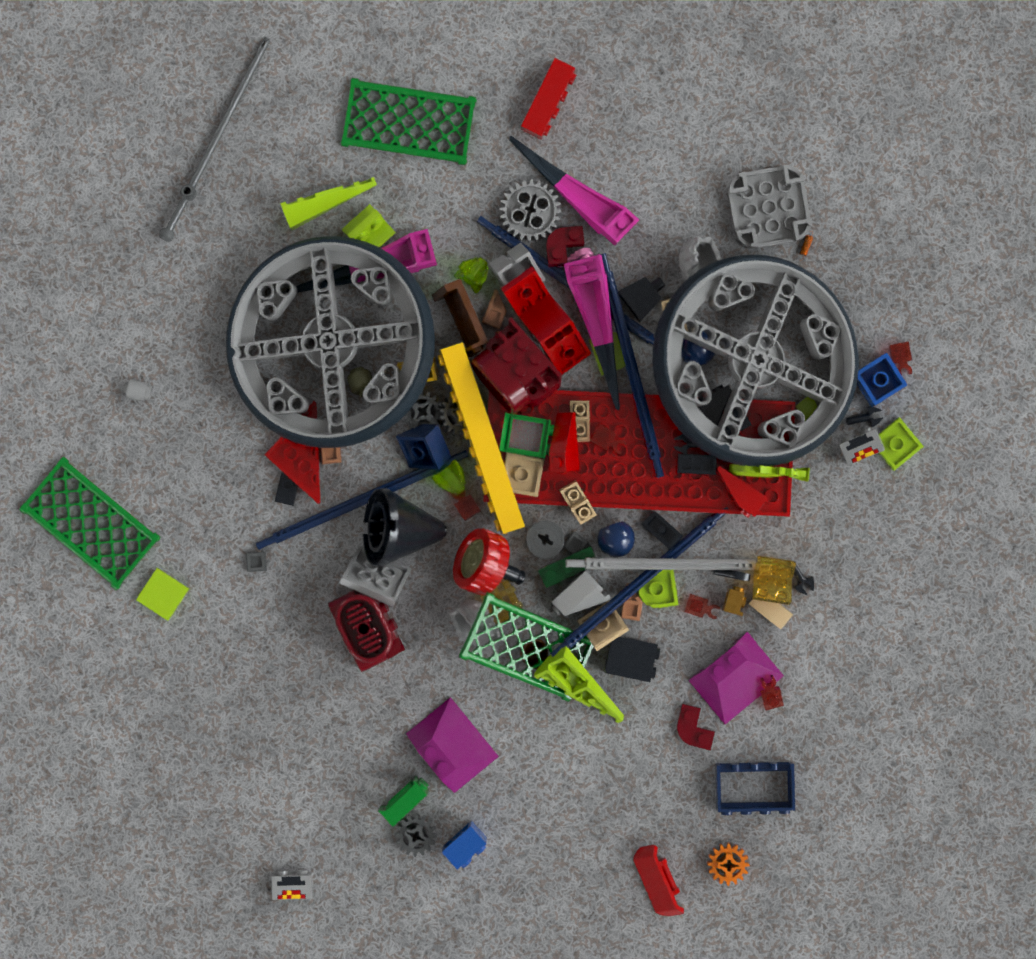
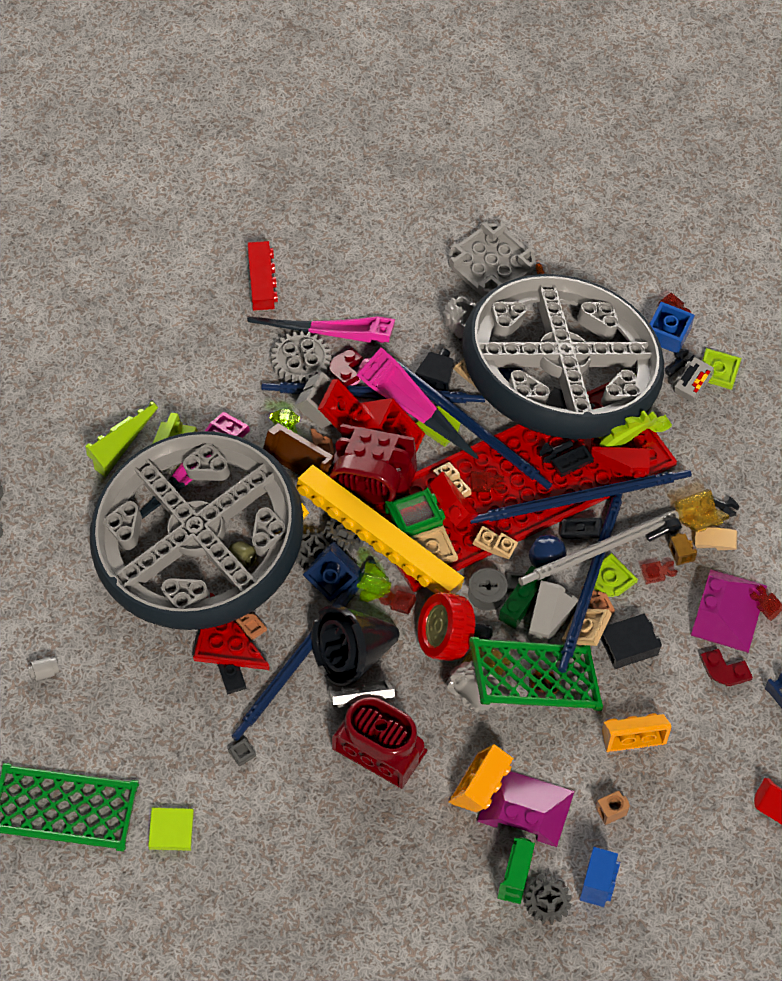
camera: 35 degrees left, 30 degrees down
(355, 83) = (155, 371): green door -> none
(427, 707) = (482, 779): none -> light orange slope
(511, 785) = (610, 815): none -> medium nougat brick
(539, 312) = (360, 414): none -> red tile
(571, 676) = (587, 679): lime wedge -> none
(579, 740) = (636, 732): none -> light orange slope
(683, 503) = (581, 496): none -> dark blue axle

